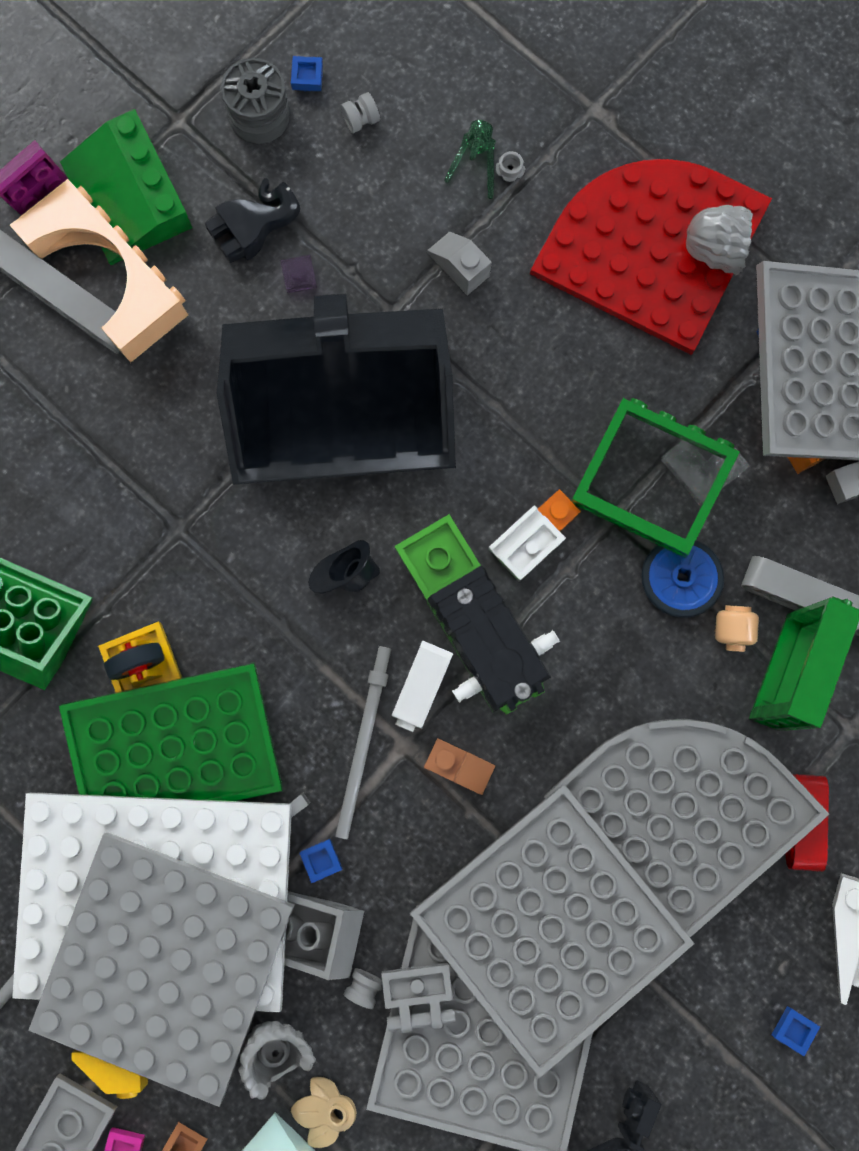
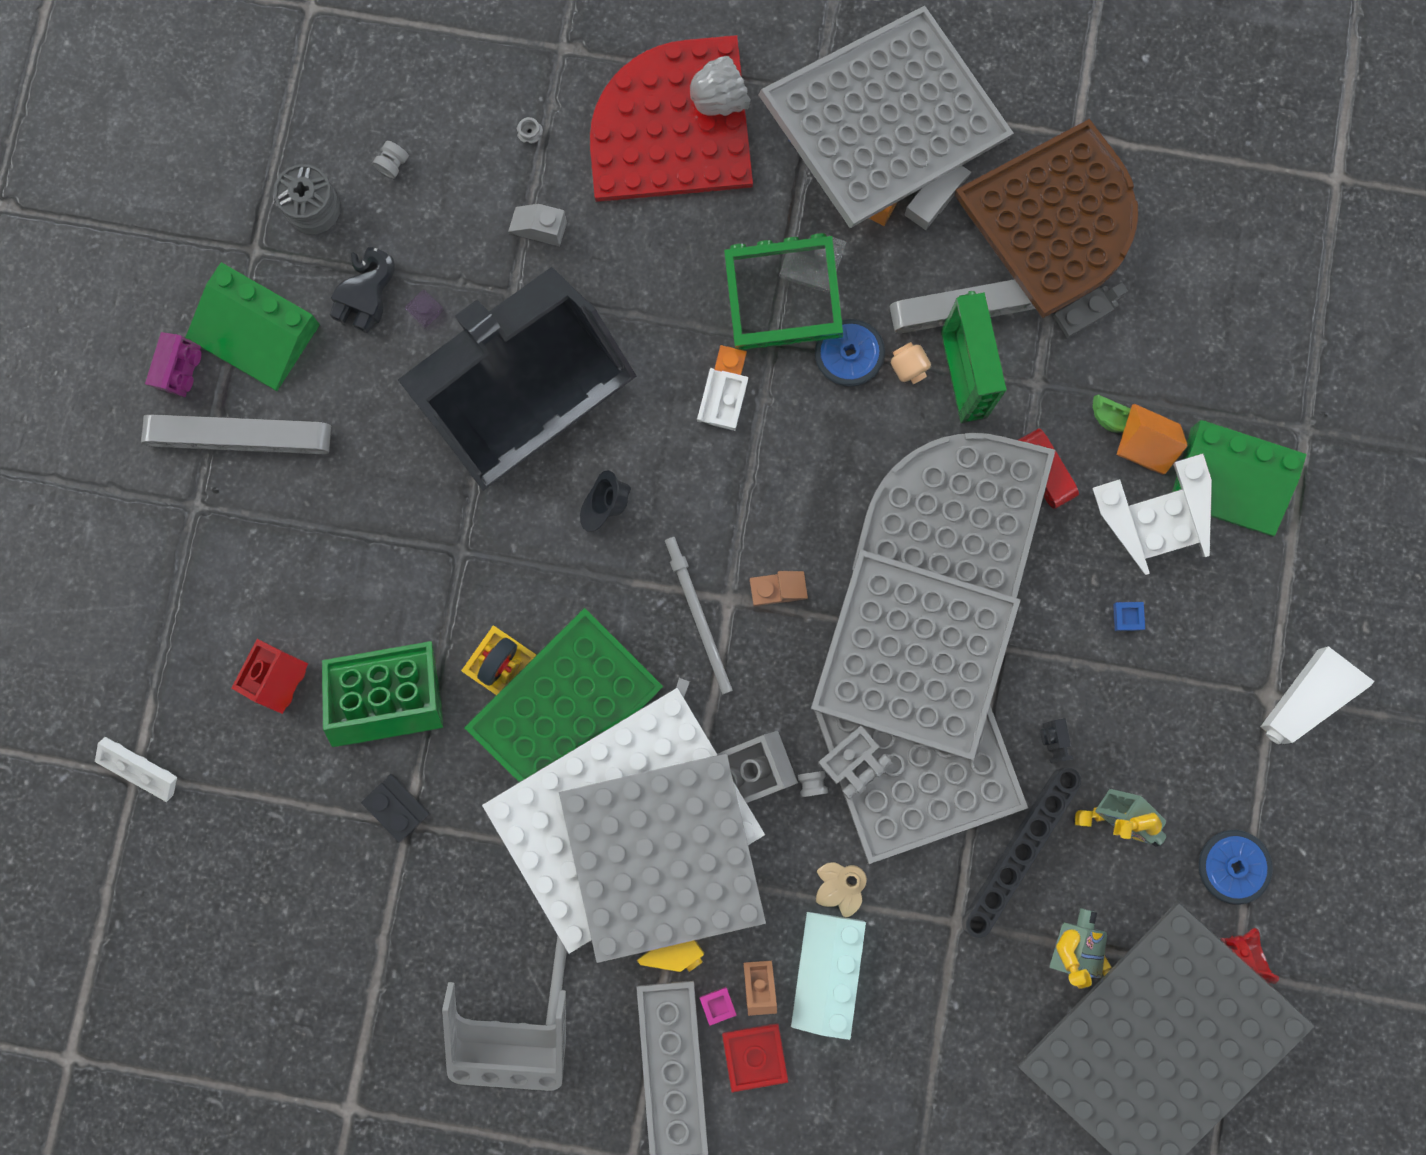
camera: 30 degrees left, 0 degrees up
(148, 304) = (227, 374): light nougat arch -> none
(262, 1067) = (782, 854): light grey hair -> none
(307, 73) = (330, 154): blue plate -> none
(320, 860) = (723, 717): blue plate -> none
(421, 686) = (714, 547): white slope -> none
(475, 618) = (721, 475): black piece -> none
(478, 140) = (493, 126): clear green plant -> none

